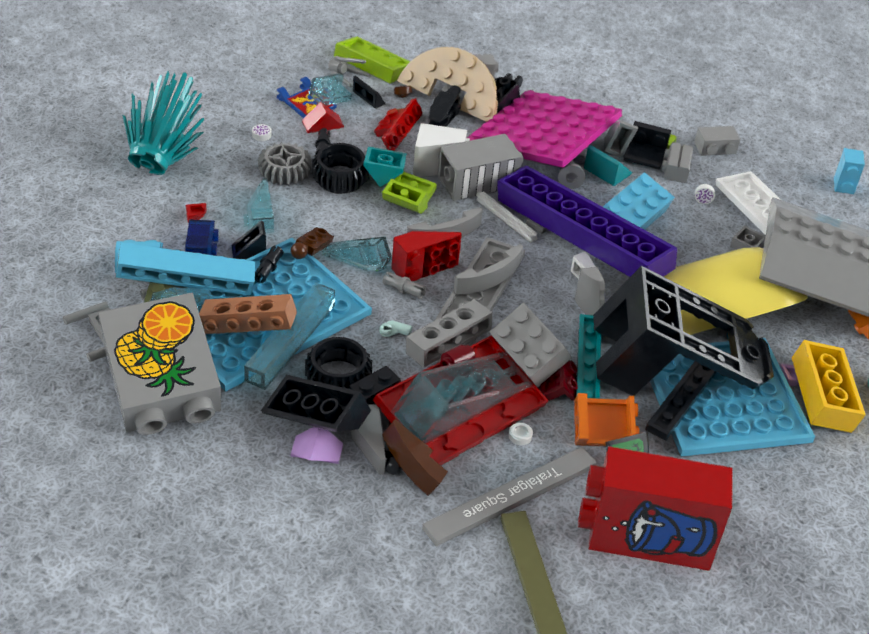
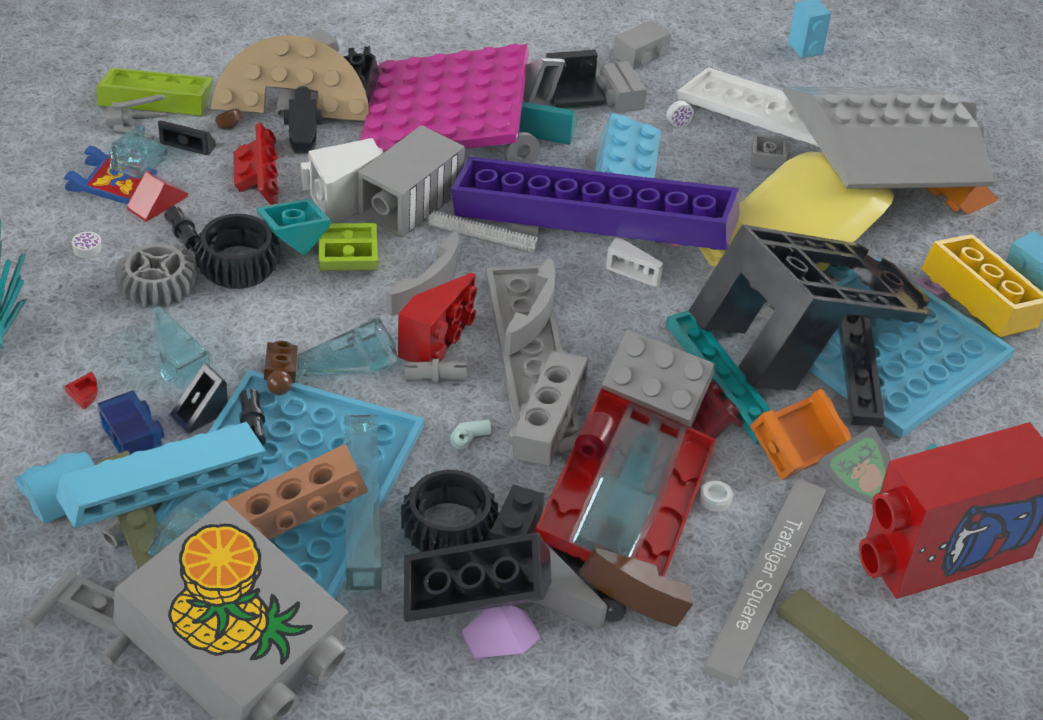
camera: 30 degrees left, 0 degrees up
(590, 290) = (664, 284): light grey slope -> none

